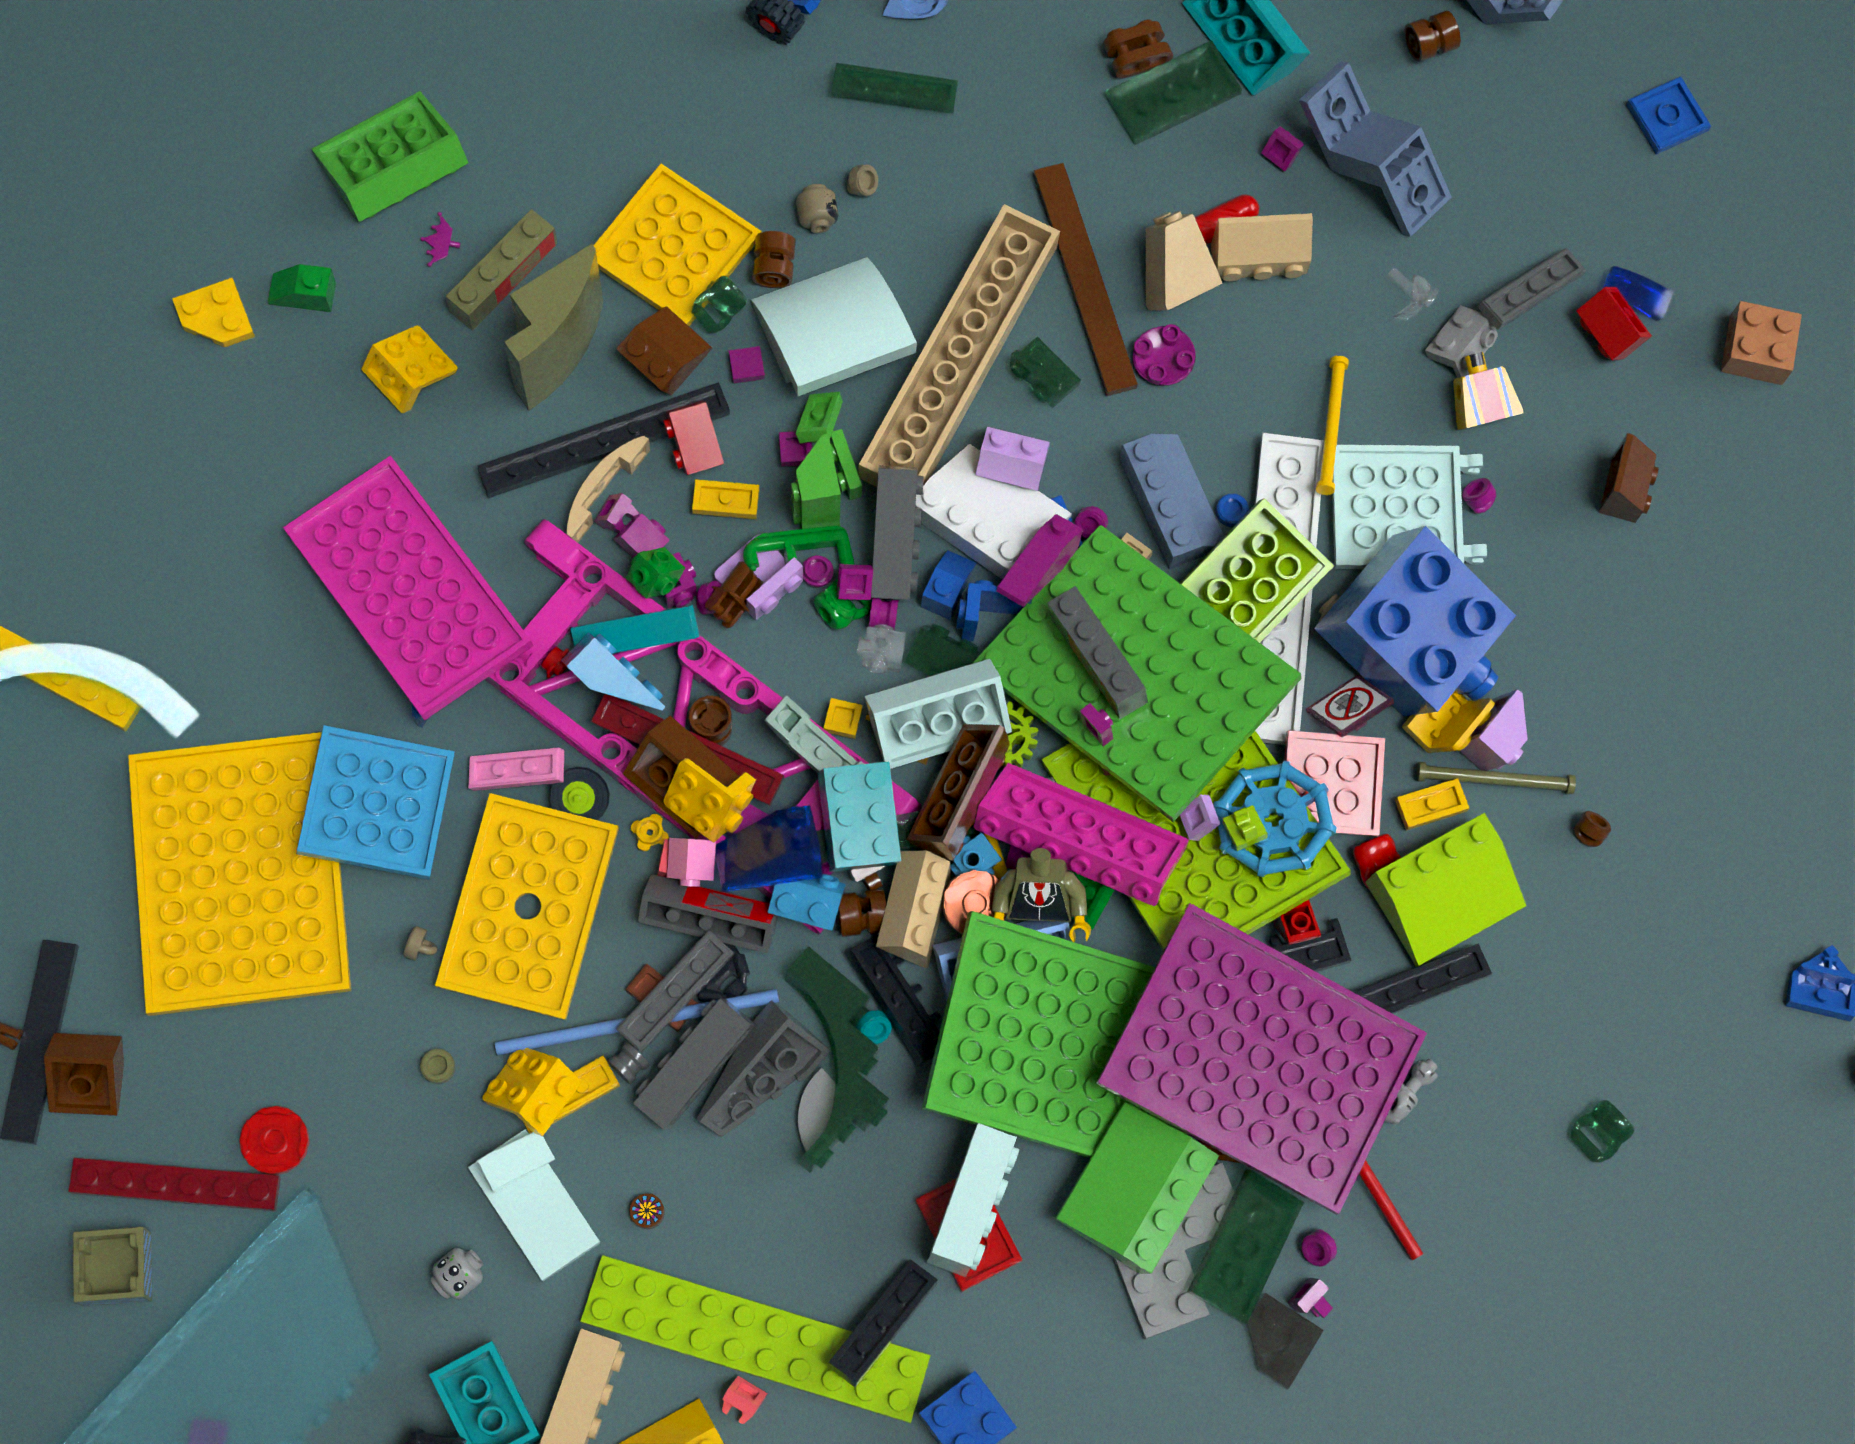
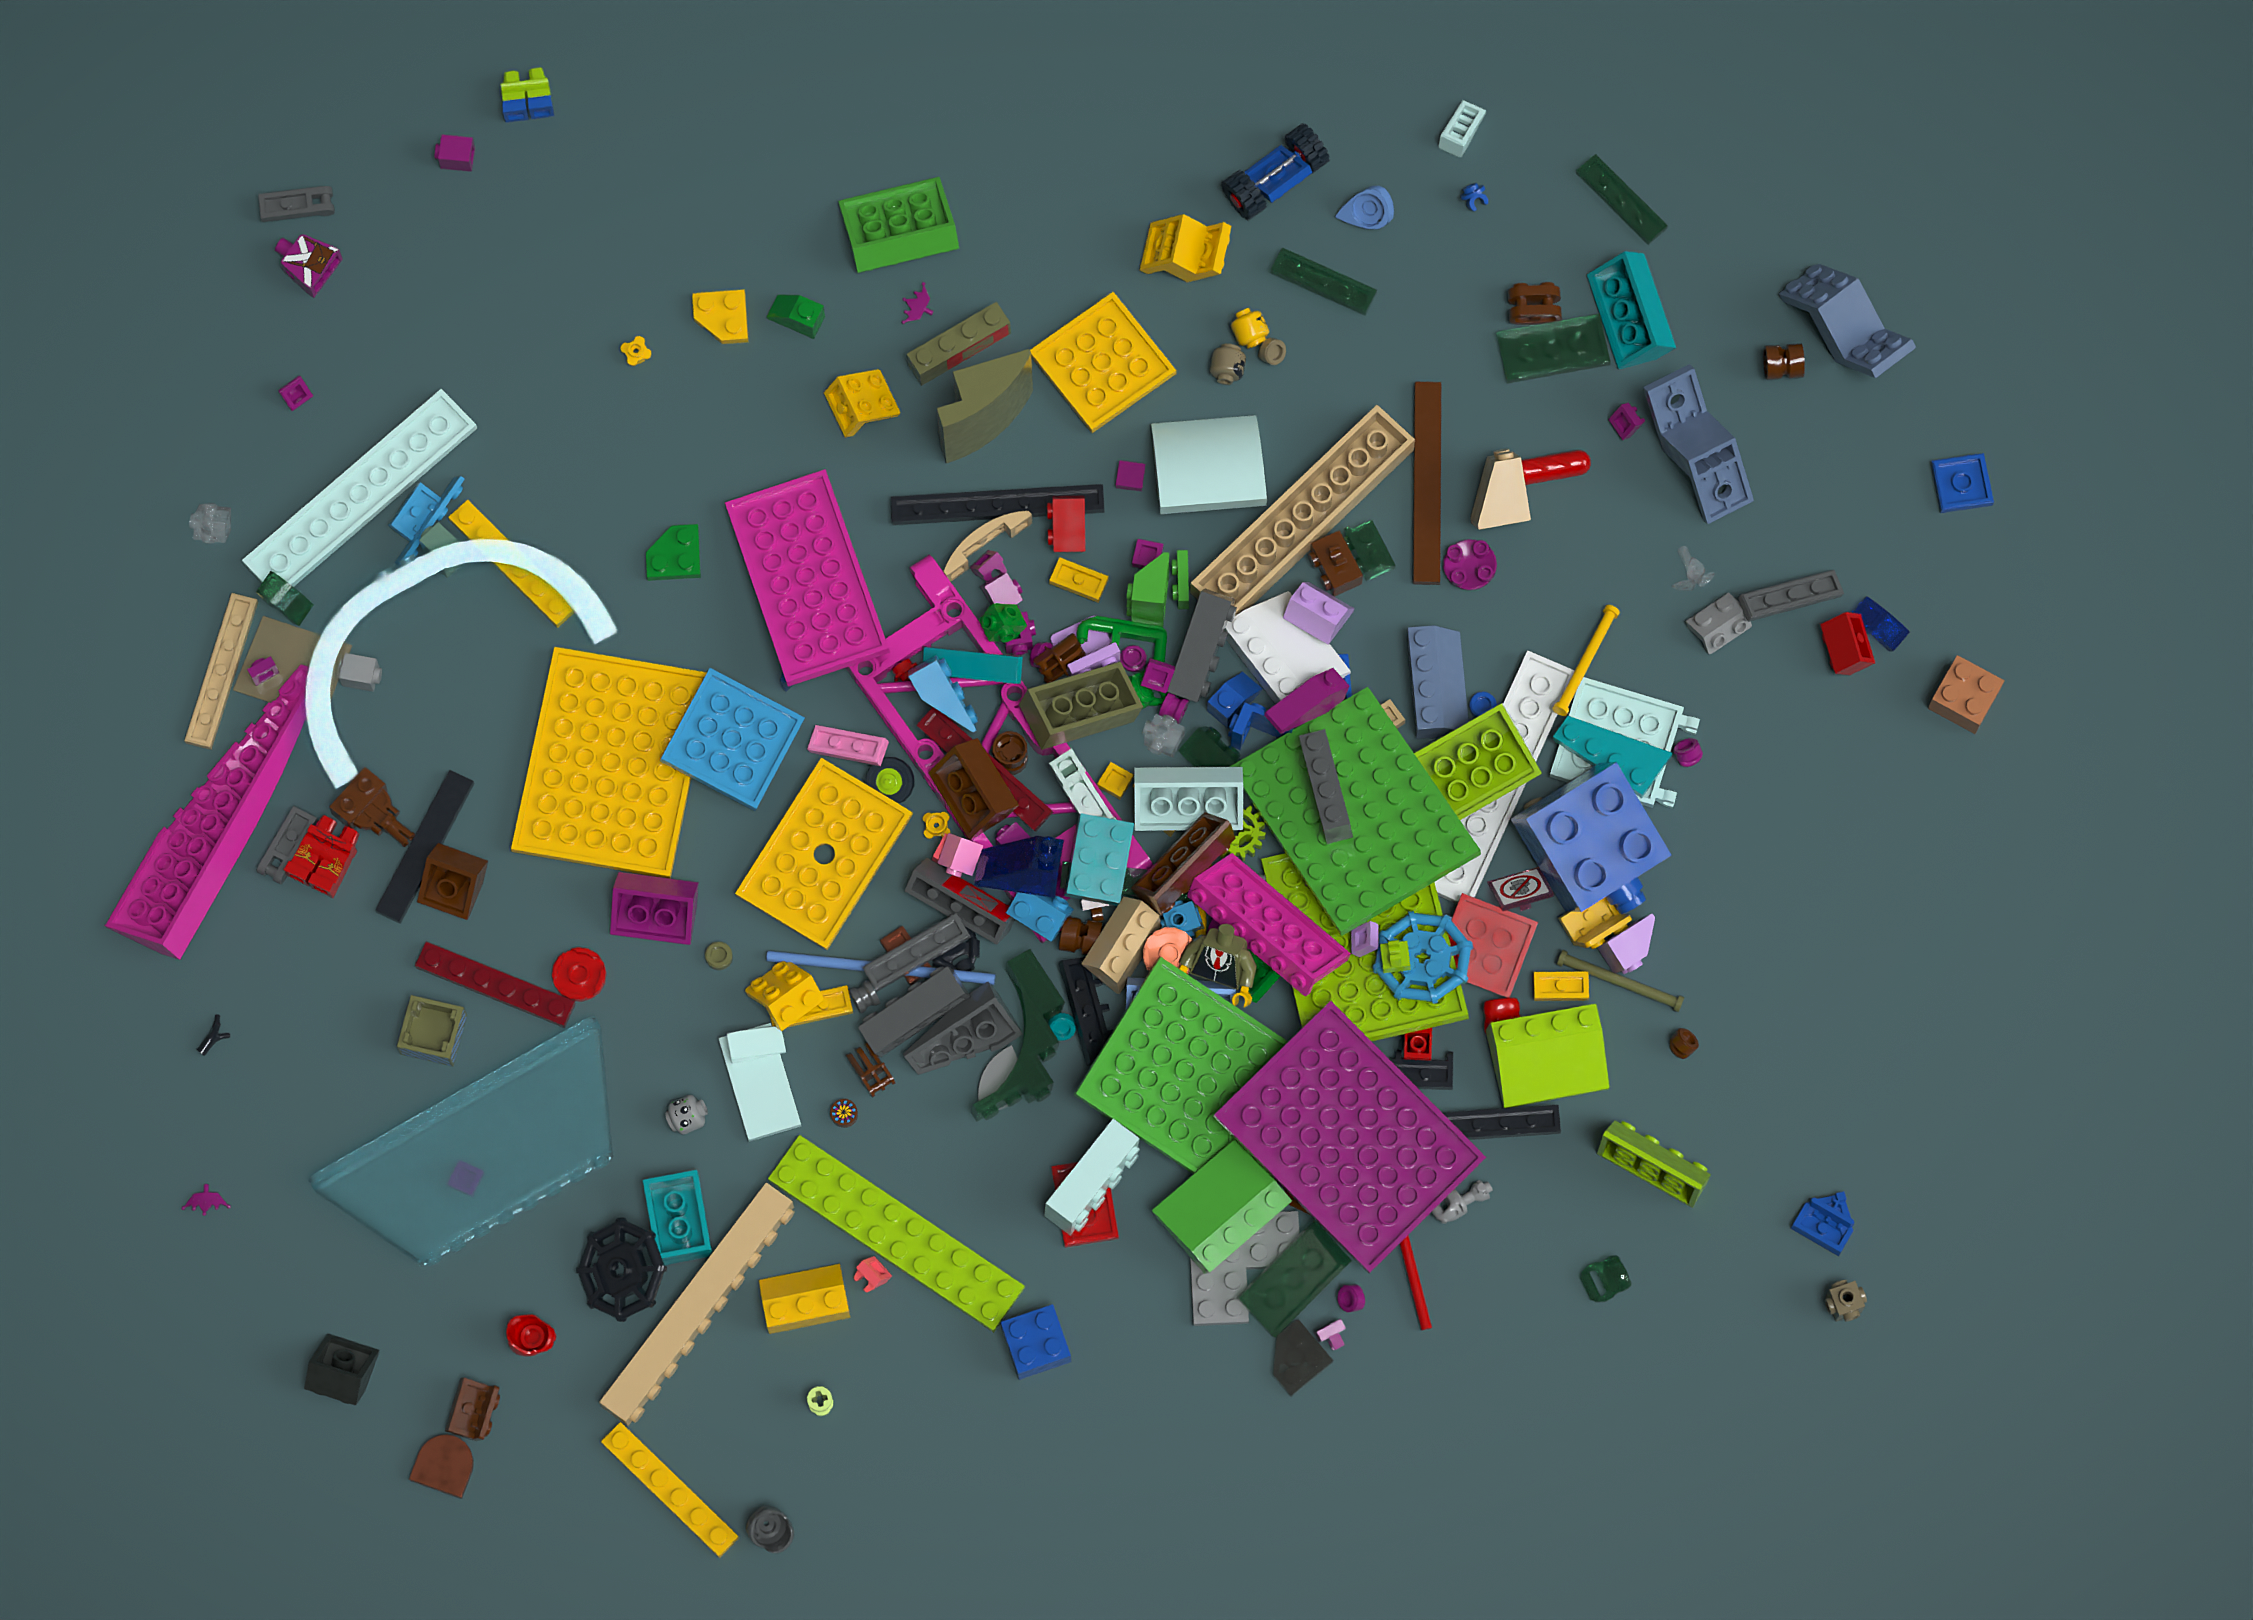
camera: 25 degrees right, 0 degrees up
(127, 391) = (639, 357): none -> yellow plate
(241, 605) = (675, 554): none -> green plate
(341, 1032) = (654, 908): none -> magenta slope
(417, 944) = (731, 857): dark tan tile -> none
(664, 349) = (1067, 445): reddish brown slope -> none
(665, 1150) = (872, 1071): none -> reddish brown arm
(707, 802) = (983, 813): yellow bracket -> none
(726, 300) = (1129, 418): clear green piece -> none
(728, 91) = (1185, 248): none -> yellow bracket
(773, 259) = (1180, 393): reddish brown wheel -> none
(777, 642) = (1080, 705): none -> olive brick
(819, 416) = (1173, 535): bright green plate -> none
(829, 161) = (1249, 328): none -> yellow head
(882, 1323) = (995, 1249): black plate -> none
(1013, 397) = (1335, 564): none -> reddish brown brick
(1090, 519) = (1363, 679): magenta tile -> none
(1097, 723) = (1306, 841): magenta plate -> none
(1262, 246) = (1578, 499): tan slope -> none
(1384, 515) = (1596, 745): none -> teal wing
(1483, 394) = (1718, 671): torso -> none
(1613, 979) = (1653, 1163): none -> lime slope
(1629, 480) = (1813, 775): reddish brown slope -> none

